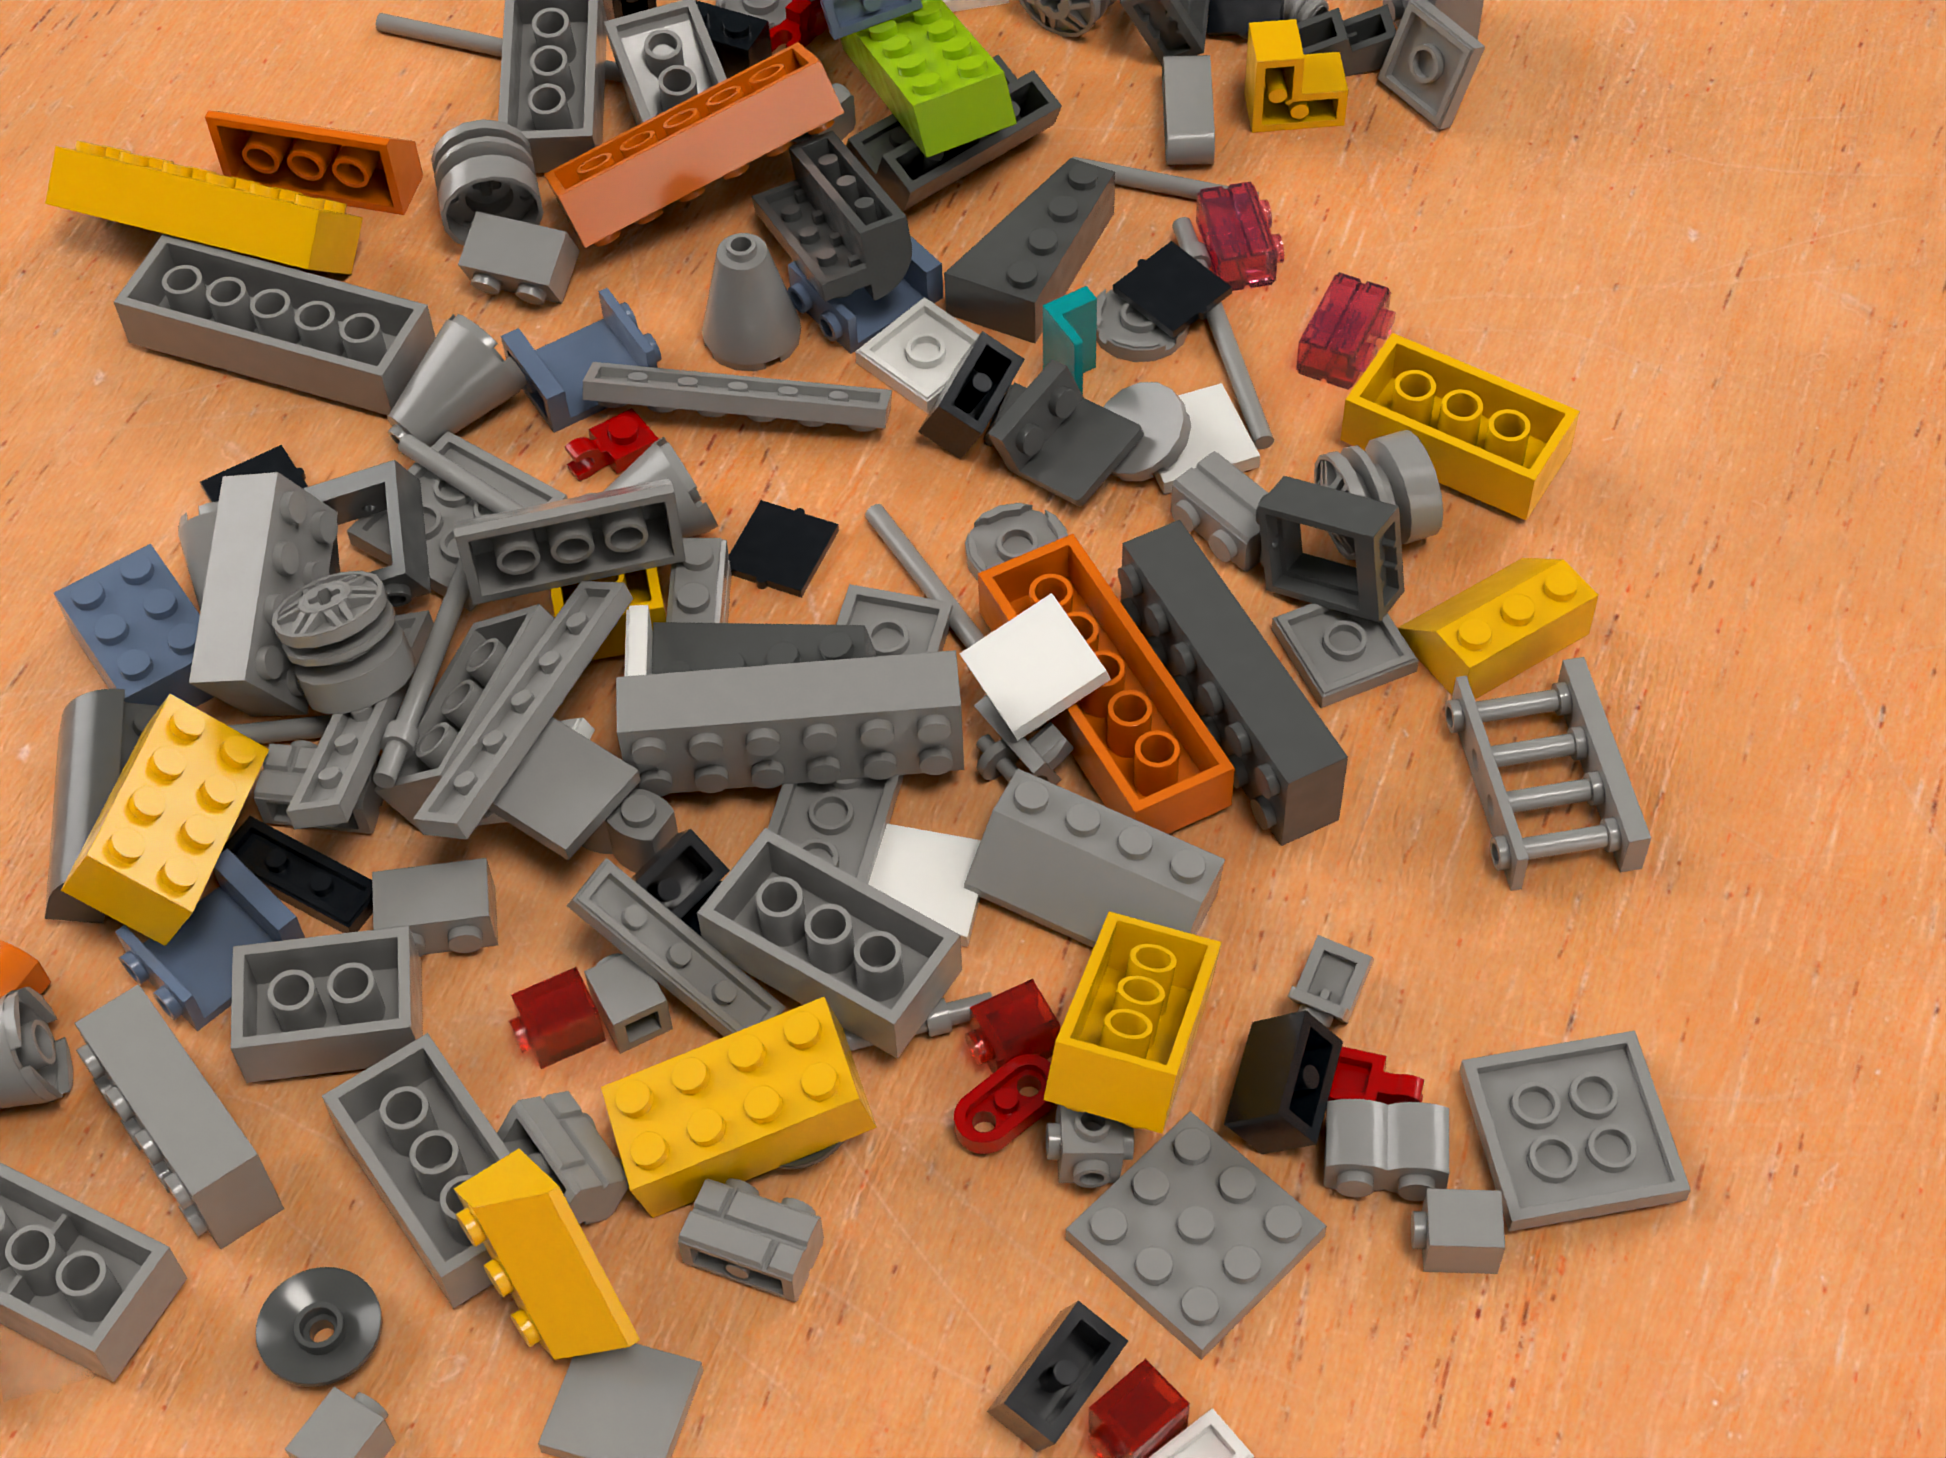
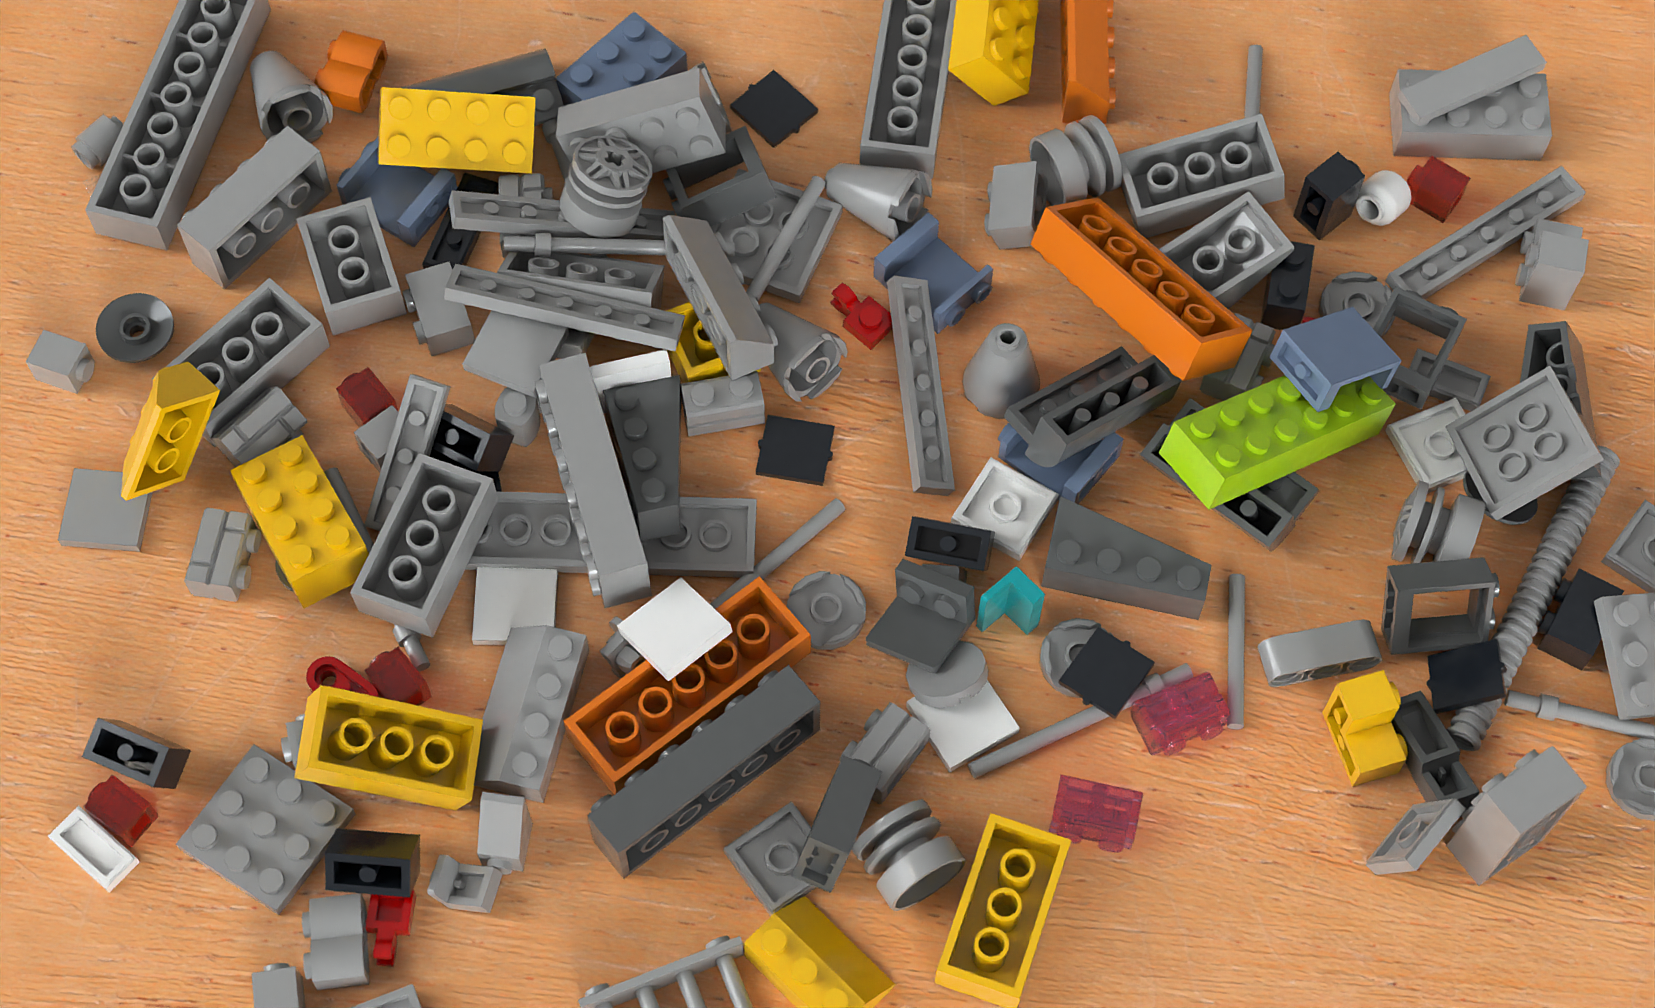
camera: 75 degrees right, 10 degrees up
(1270, 919) = (503, 832): none -> light grey slope

